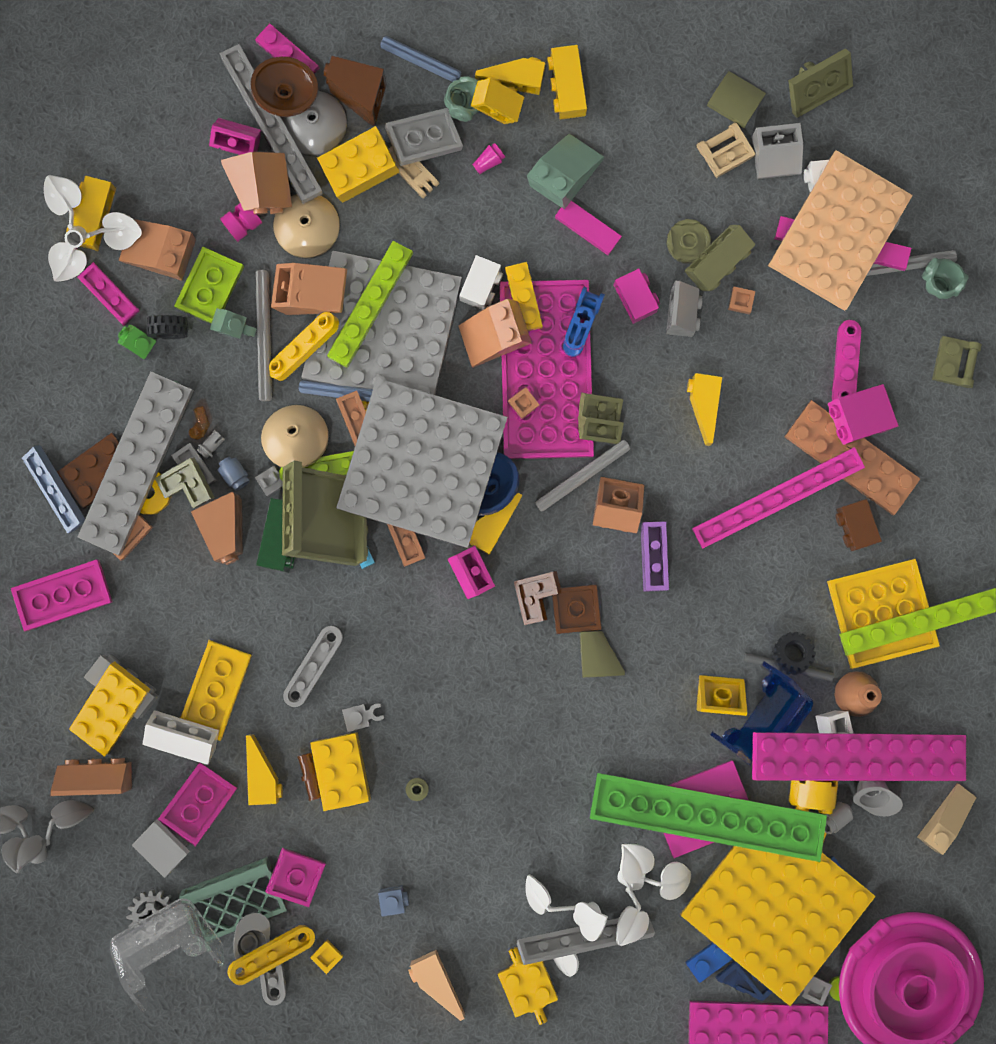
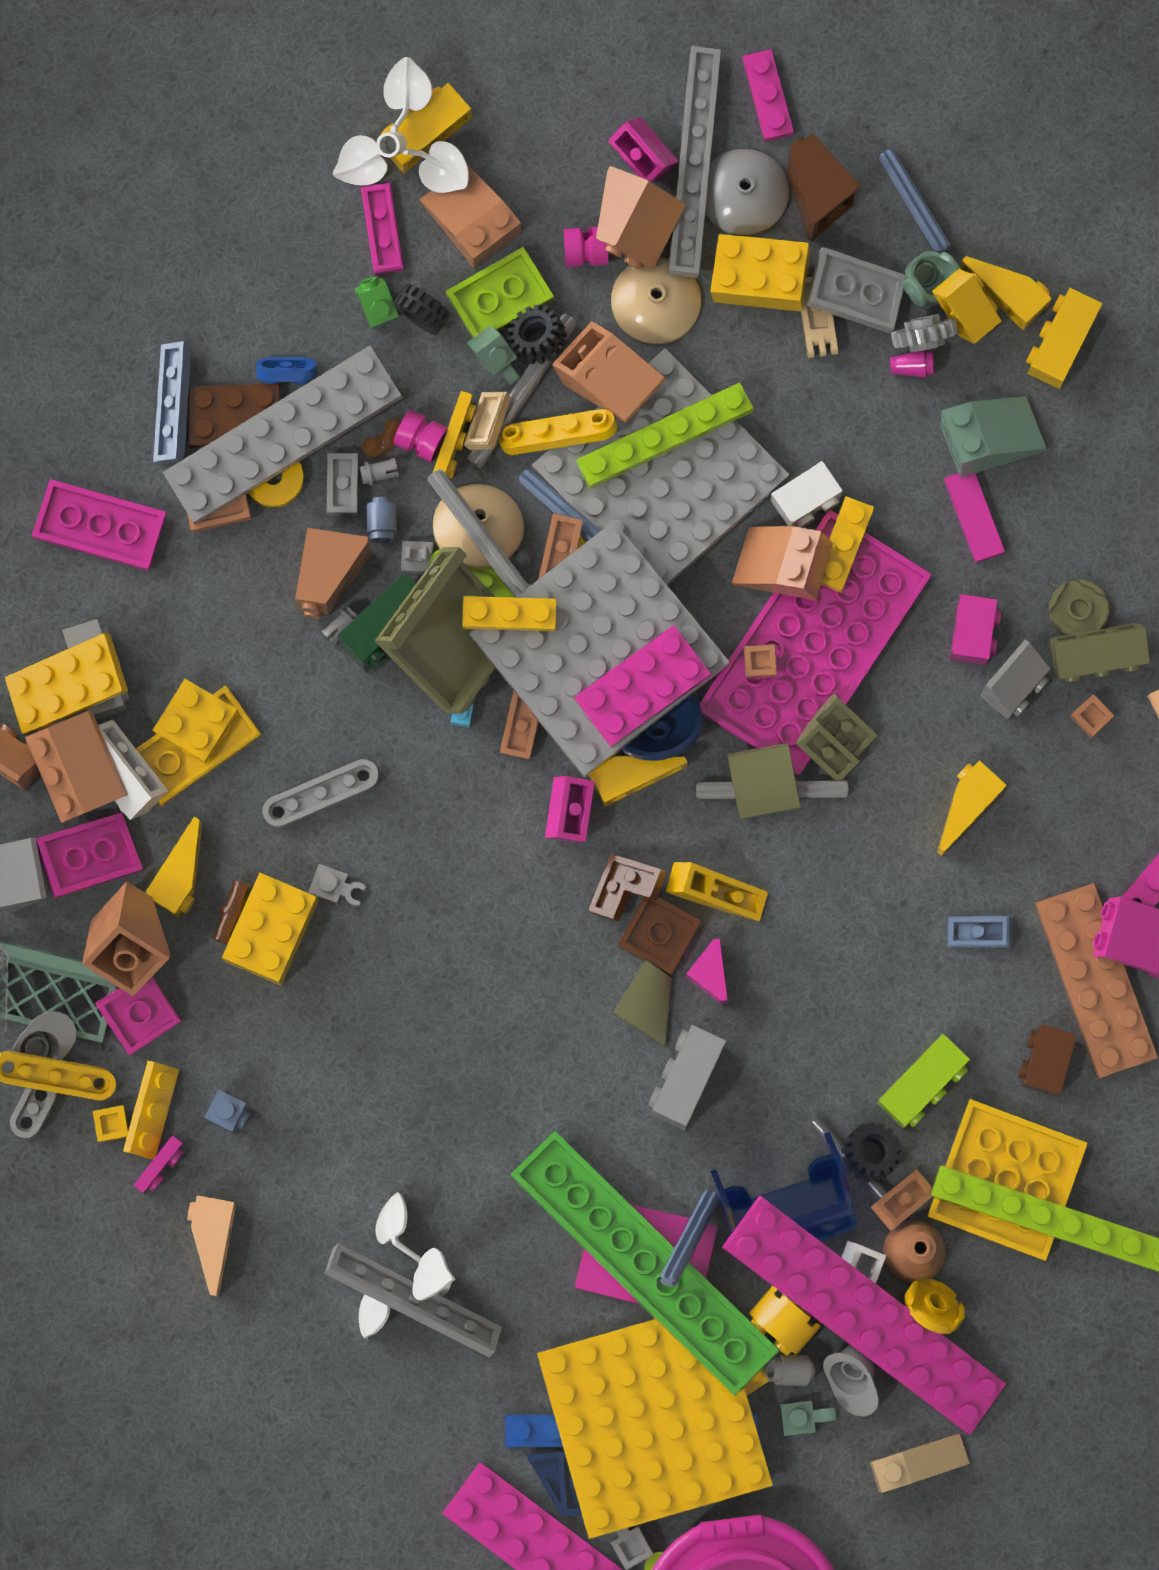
camera: 40 degrees right, 5 degrees down
(109, 421) = (286, 369): none -> blue plate
(151, 756) = (76, 766): none -> nougat slope
(186, 477) = (329, 490): plate -> none
(205, 675) = (195, 720): none -> yellow plate
(221, 405) = (421, 436): none -> dark pink wheel
(243, 393) = (455, 436): none -> yellow plate
(252, 553) = (339, 623): none -> light grey pin
(255, 368) = (487, 420): none -> tan tile
(257, 843) = (126, 940): none -> nougat slope
(259, 294) = (527, 325): none -> black tyre
(286, 77) = (746, 120): reddish brown dish -> none
(298, 442) = (477, 532): none -> light grey axle
(345, 931) = (151, 1110): none -> yellow plate
(352, 479) = (509, 613): none -> yellow plate
(374, 970) = (152, 1175): none -> dark pink plate
(409, 789) = (342, 1019): olive plate -> none
(465, 468) = (642, 686): none -> dark pink plate
(483, 135) = (924, 333): none -> light grey gear
(527, 987) = (310, 1314): yellow plate -> none
(575, 474) = (764, 780): none -> olive slope
(577, 333) = (873, 625): blue piece -> none
(592, 560) = (716, 890): none -> yellow slope
(618, 505) = (789, 849): nougat slope -> none
(622, 612) = (709, 972): none -> dark pink slope
(634, 865) = (523, 1248): white plant -> none
(654, 556) = (788, 933): medium lavender brick -> none
(655, 686) = (686, 1076): none -> light grey brick
(721, 695) = (756, 1143): yellow slope -> none
(725, 784) = (689, 1238): none -> sand blue axle
(764, 476) = (981, 932): none -> sand blue slope
(778, 498) = (976, 965): dark pink plate -> none
(795, 589) = (924, 1082): none -> lime brick
(832, 669) = (903, 1200): none -> nougat plate
(860, 840) = (801, 1418): none -> sand green plate
(899, 729) = (942, 1319): none -> yellow tile

